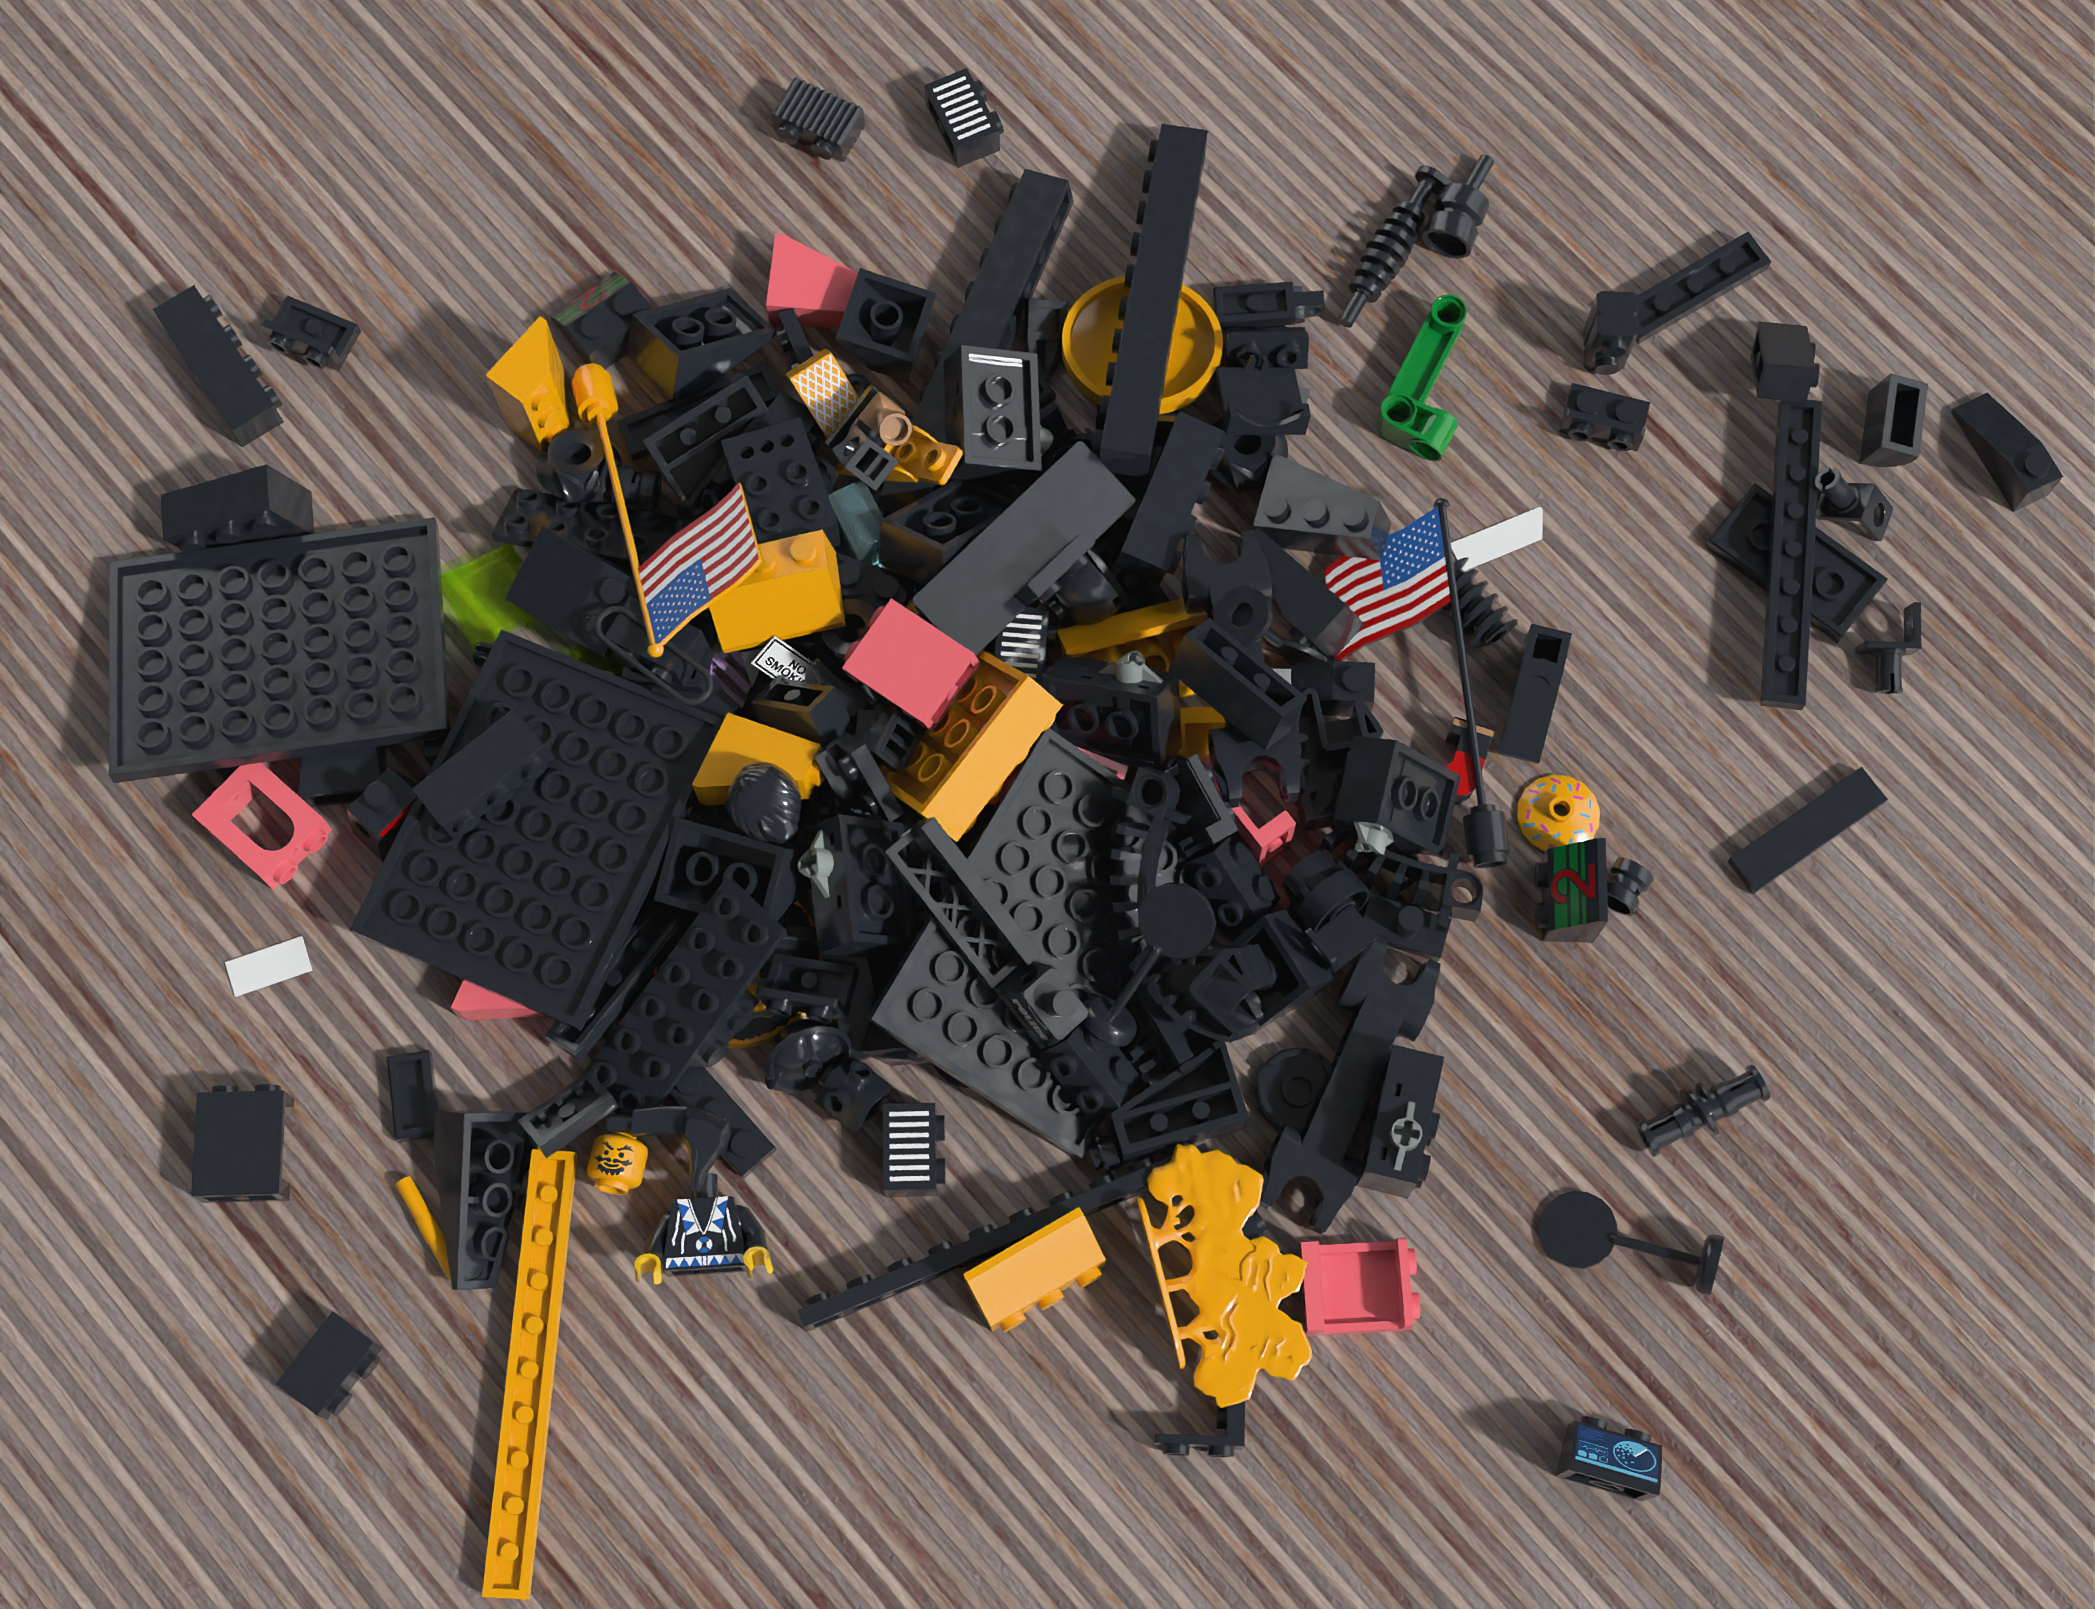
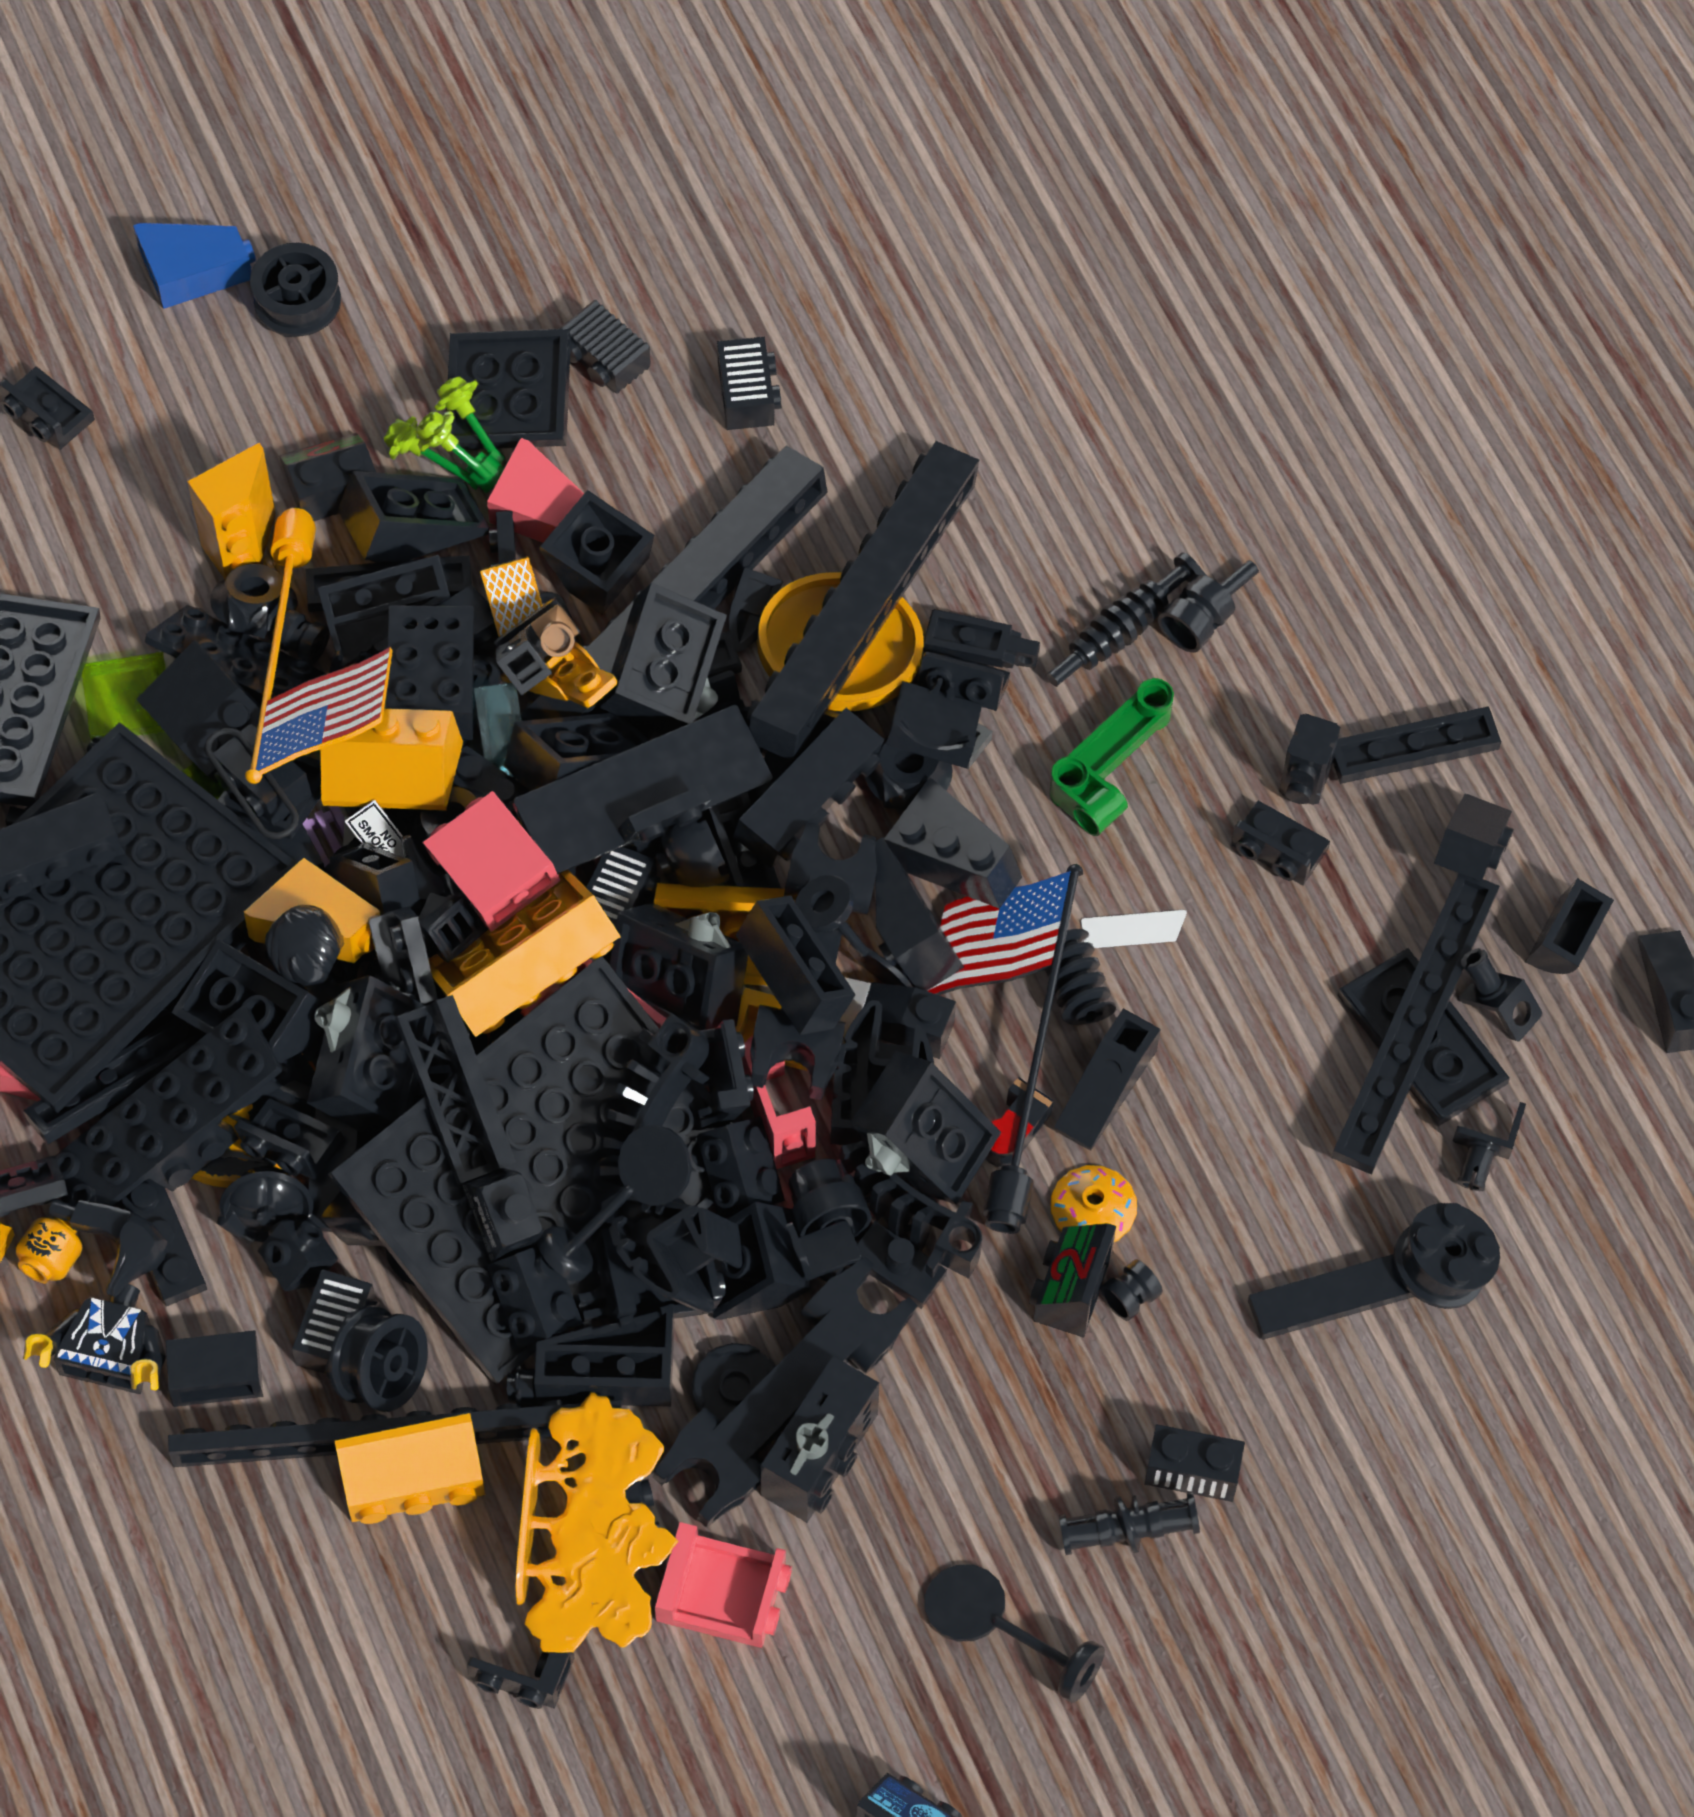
camera: 15 degrees right, 10 degrees down
(398, 146) = (193, 259): none -> blue slope
(508, 147) = (295, 289): none -> black wheel
(698, 252) = (436, 430): none -> lime plant
(744, 188) = (518, 388): none -> black plate
(814, 1228) = (214, 1368): none -> black brick
(967, 1174) = (378, 1358): none -> black wheel
(1740, 1033) = (1194, 1463): none -> black brick
(1896, 767) = (1446, 1255): none -> black wheel

